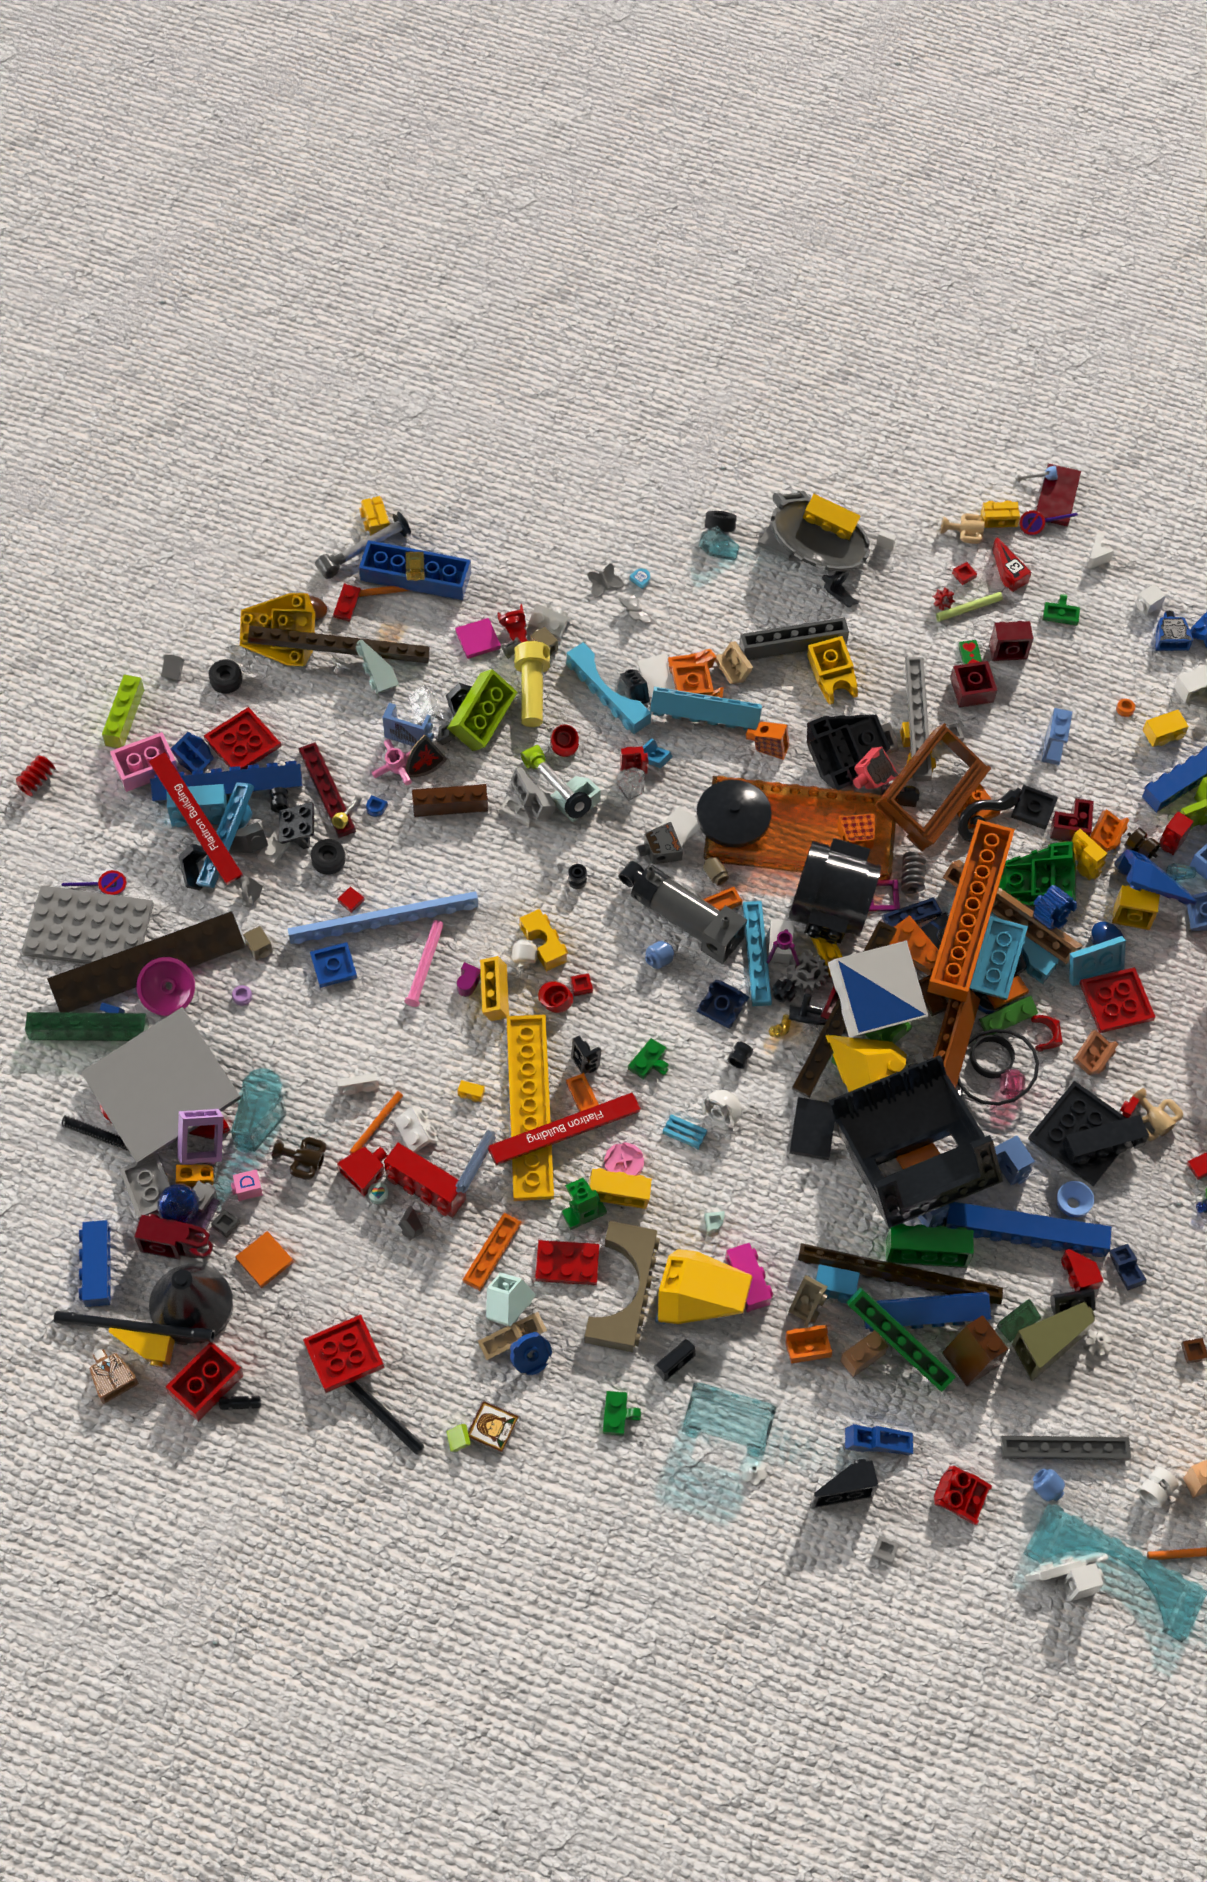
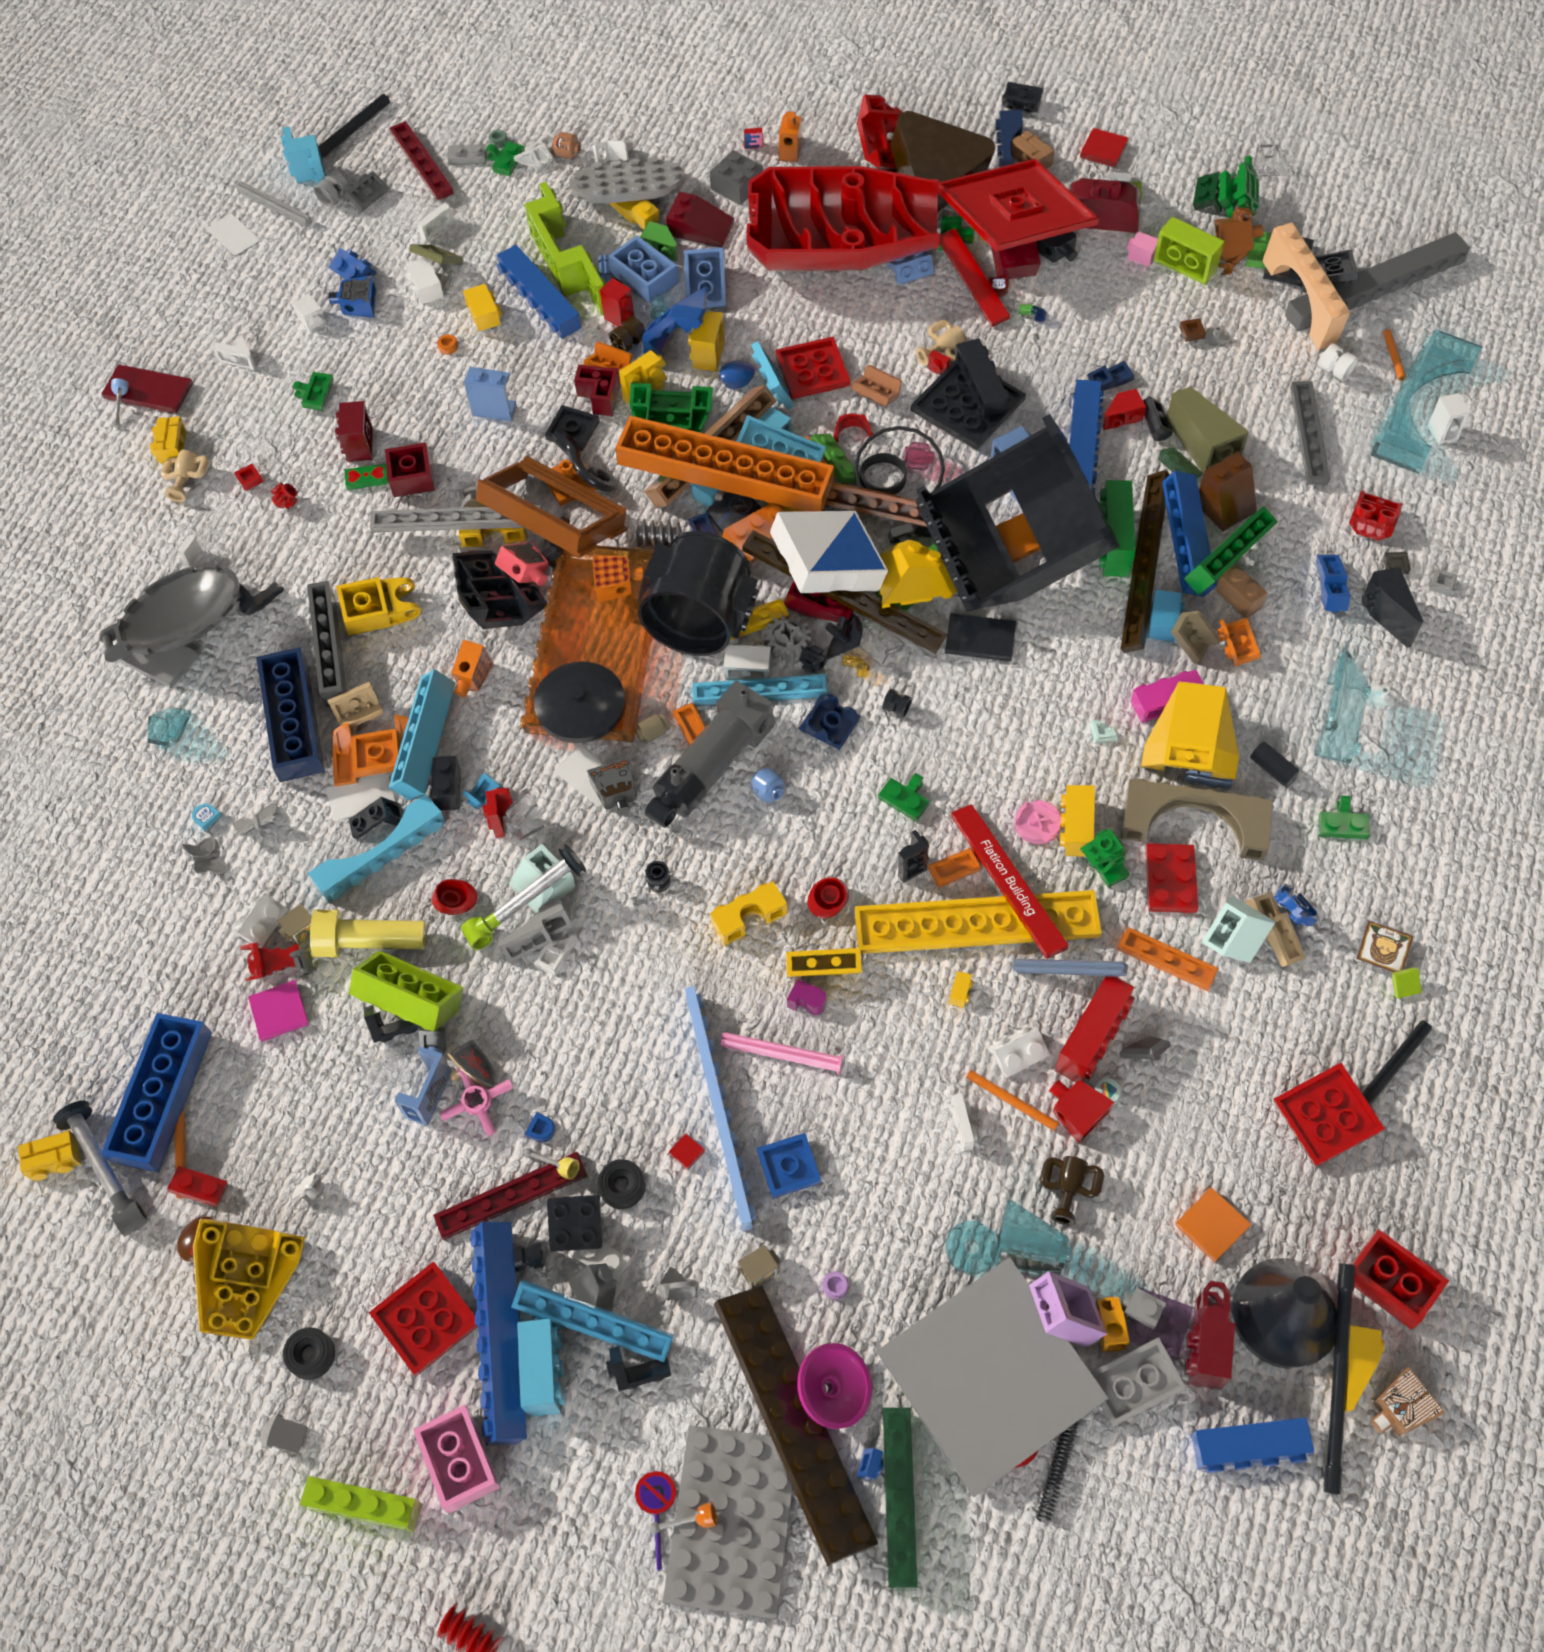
camera: 85 degrees left, 0 degrees up
(92, 907) = (705, 1517): none -> hinge
(186, 1199) = (1168, 1330): clear blue cylinder -> none
(192, 752) = (442, 1388): blue slope -> none
(195, 818) = (571, 1359): red tile -> none
(225, 1223) = (1169, 1278): dark grey tile -> none
(240, 1402) = (1405, 1232): black axle -> none
(246, 1185) = (1117, 1251): bright pink brick -> none
(336, 644) = (276, 1192): dark brown plate -> none
(380, 672) = (332, 1127): light aqua slope -> none
(415, 566) = (162, 1080): clear yellow brick -> none
(450, 800) = (540, 1030): reddish brown brick -> none
(524, 953) = (769, 933): white head -> none
(581, 984) = (806, 872): red tile -> none
(664, 728) = (446, 783): none -> black brick
(666, 1131) = (1001, 746): medium azure tile -> none
(722, 1108) = (970, 715): white cylinder -> none
(724, 520) = (133, 720): black tyre -> none
(725, 619) = (290, 715): none -> dark blue brick
(784, 942) = (767, 639): magenta plant -> none
(831, 517) = (150, 599): yellow brick -> none
(906, 1509) = (1397, 559): none -> clear smoke tile
(969, 606) = (295, 476): yellowish green piece -> none
(1011, 569) = (245, 434): red slope -> none
(1033, 522) = (185, 408): piece -> none
(1048, 1485) = (1352, 445): medium blue head -> none
(1050, 1570) = (1432, 434): white plate -> none
(1054, 908) = (720, 396): blue brick -> none
(1078, 1191) = (1045, 404): light blue piece -> none
(1189, 1378) = (1216, 336): none -> light grey plant

